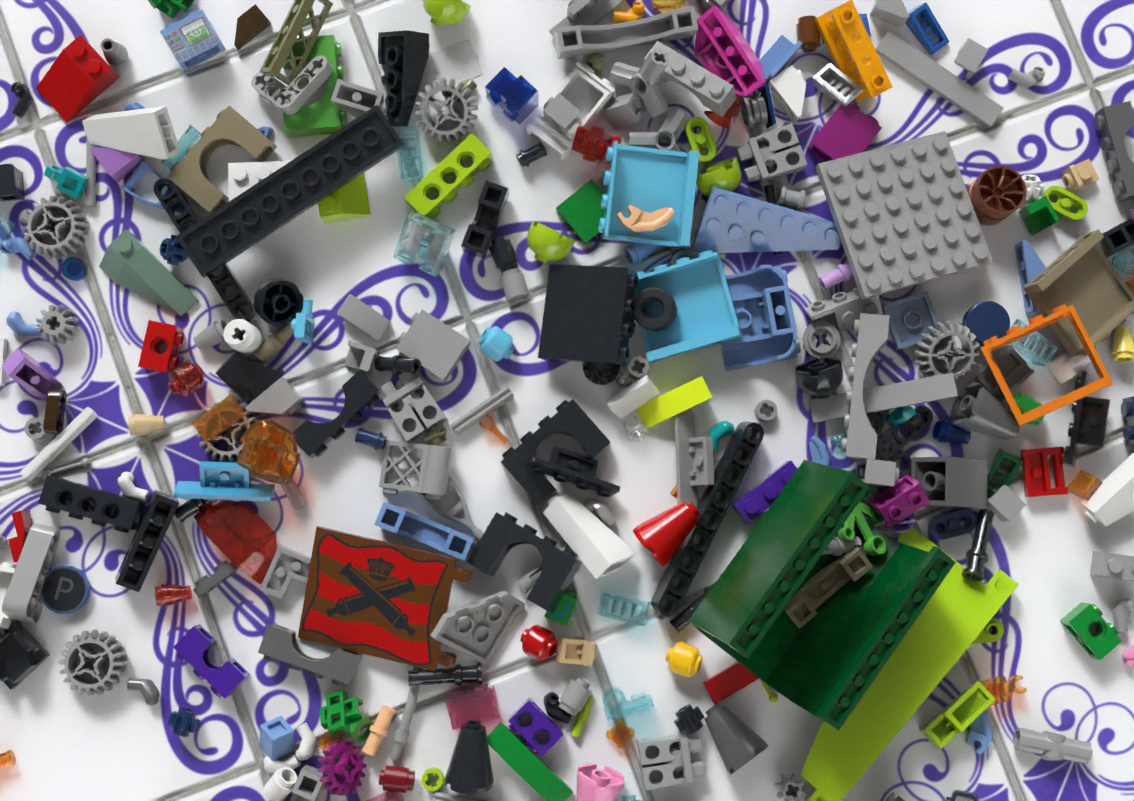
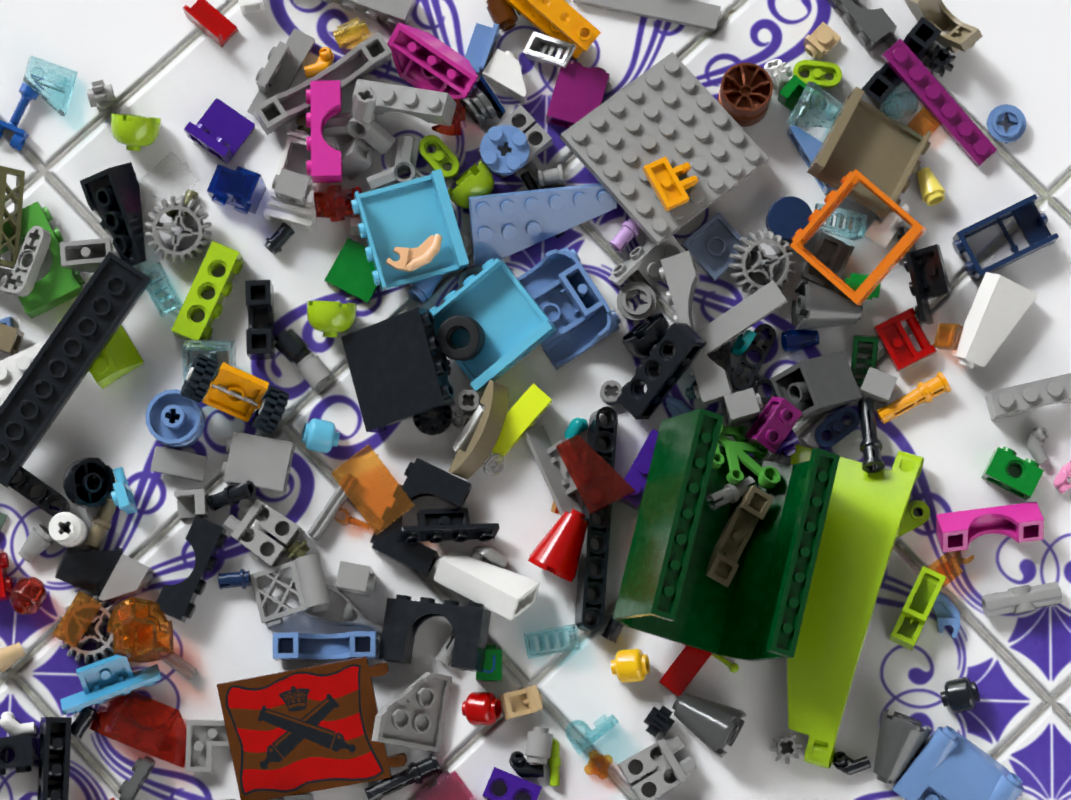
camera: 15 degrees left, 5 degrees down
(372, 263) = (164, 409): none -> medium blue wheel
(436, 276) = (235, 393): none -> plate
(475, 484) = (356, 579): none -> light grey brick
(518, 38) = (220, 130): none -> dark purple bracket
(522, 410) = (372, 489): none -> clear orange window
(620, 51) = (325, 103): none -> dark pink arch
(642, 403) = (486, 433): none -> dark tan slope
(720, 479) = (592, 475): none -> clear red wing
(761, 144) = (496, 138): none -> medium blue plate
(854, 401) = (687, 345): none -> black brick
(895, 247) = (666, 183): none -> light orange hinge
(1040, 526) = (923, 393): none -> light orange pin
(1052, 233) = (815, 108): none -> clear light blue wing
(1079, 676) = (1019, 521): none -> dark pink arch

